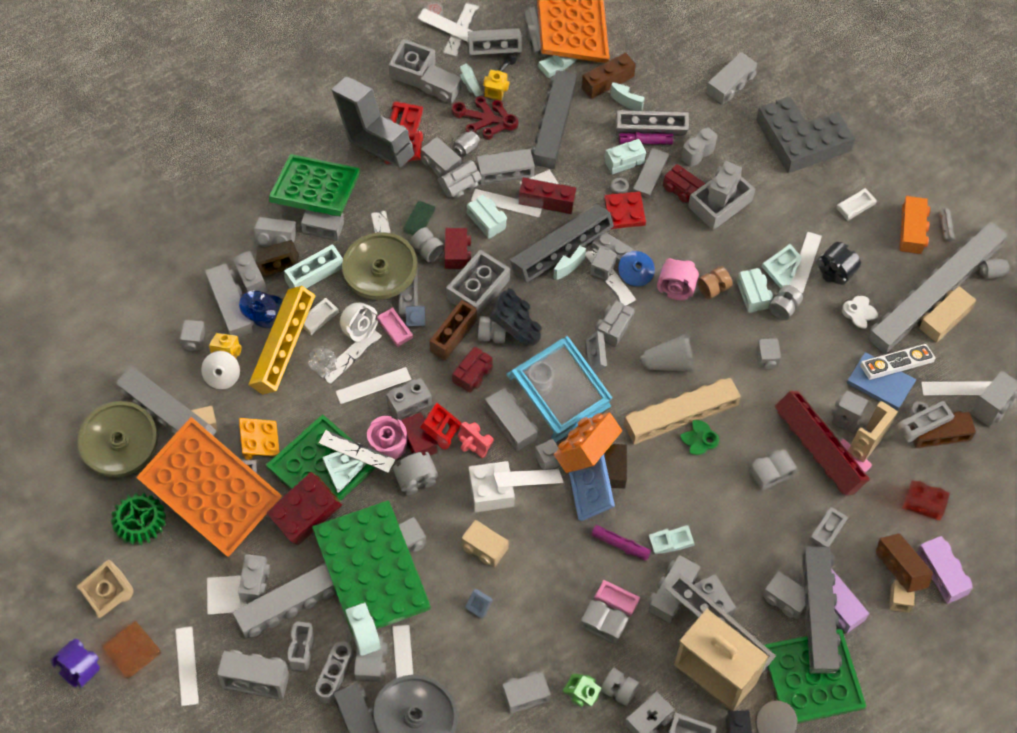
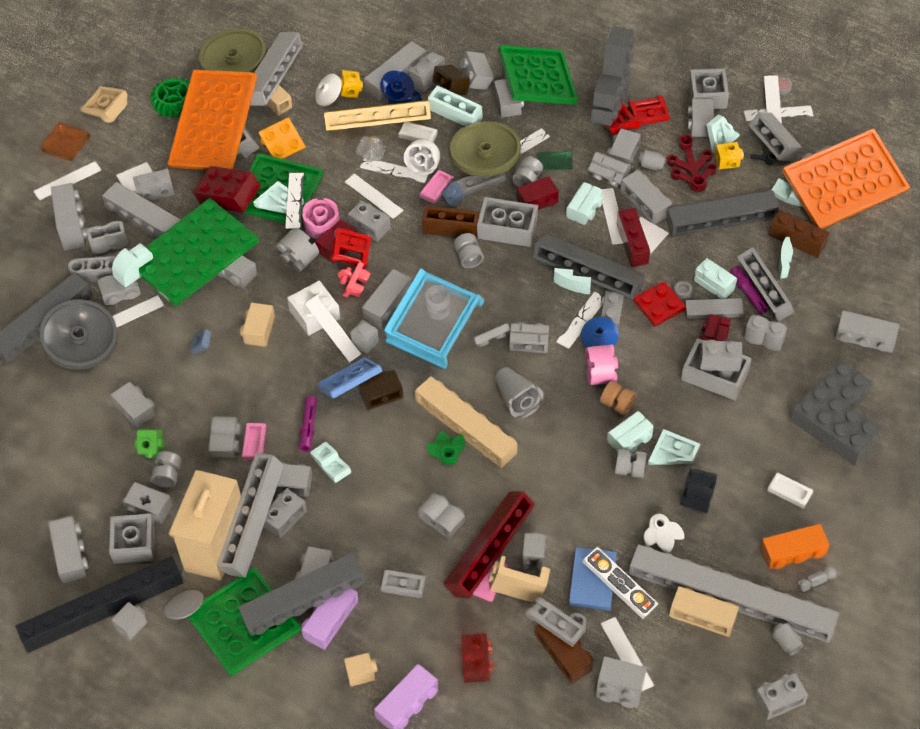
camera: 70 degrees right, 5 degrees down
(76, 663) = (34, 110): dark purple brick -> none
(193, 335) = (351, 60): light grey brick -> none
(472, 370) = (421, 252): dark red brick -> none
(513, 316) = (486, 258): black plate -> none
(587, 442) = (384, 352): orange brick -> none
(603, 263) = (587, 305): light grey brick -> none
(768, 353) = (566, 469): light grey brick -> none
(808, 254) = (682, 470): white sticker -> none
(904, 562) = (388, 652): reddish brown brick -> none

